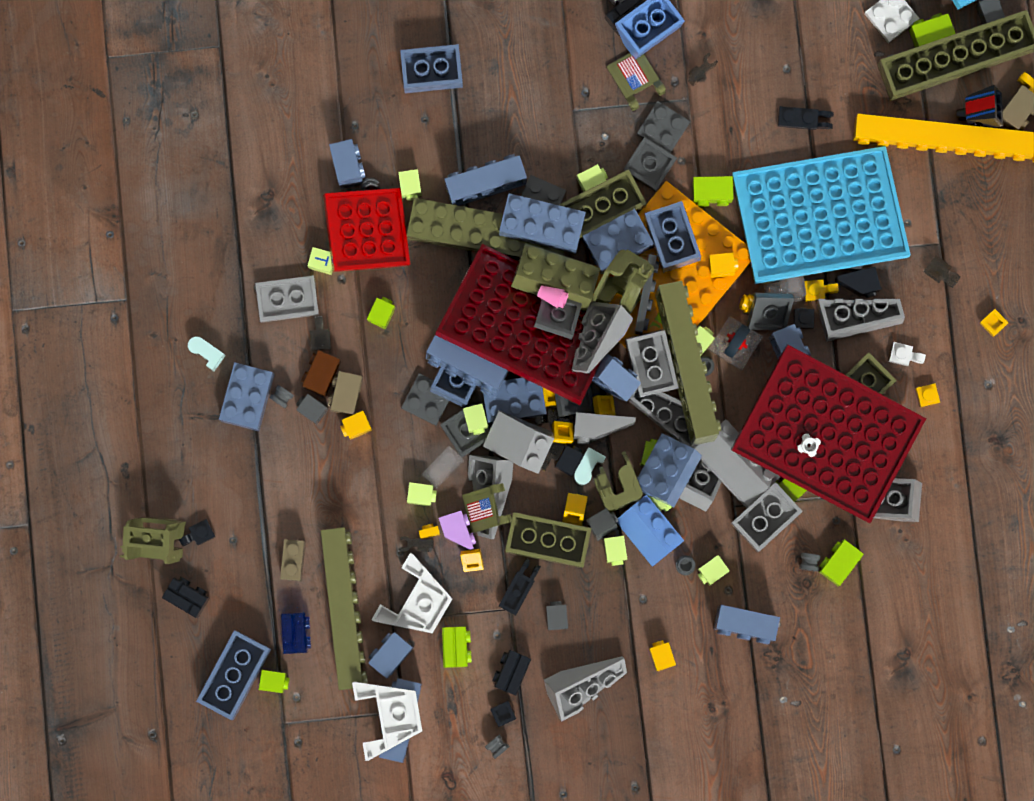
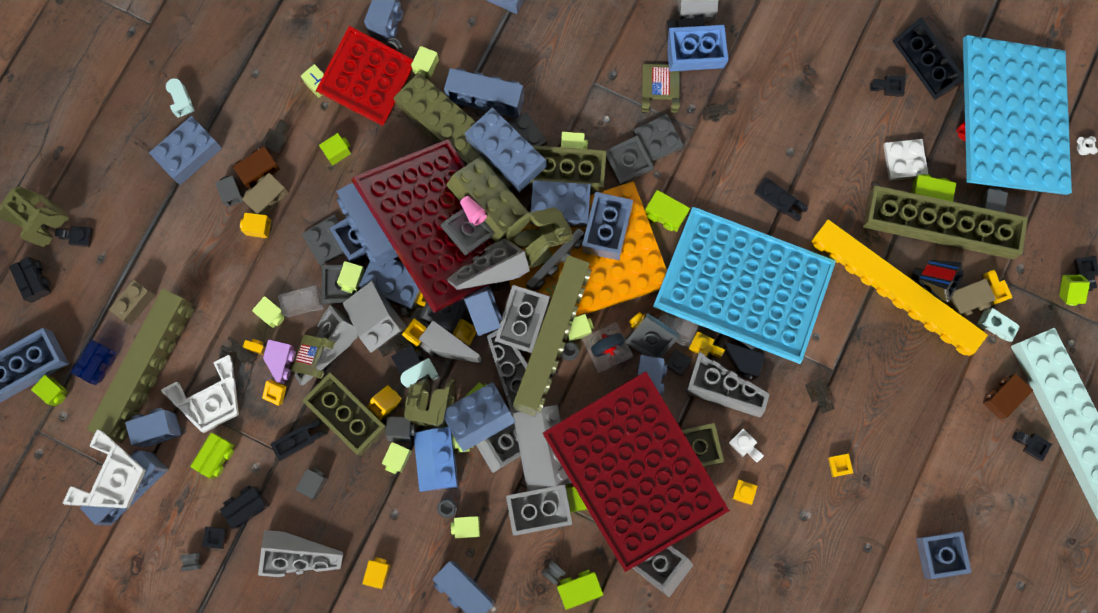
camera: 40 degrees right, 5 degrees down
(281, 396) = (213, 167): dark grey wheel -> none
(287, 299) = (270, 94): light grey plate -> none
(723, 265) = (635, 274): yellow brick -> none
(814, 445) = (610, 476): white plate -> none

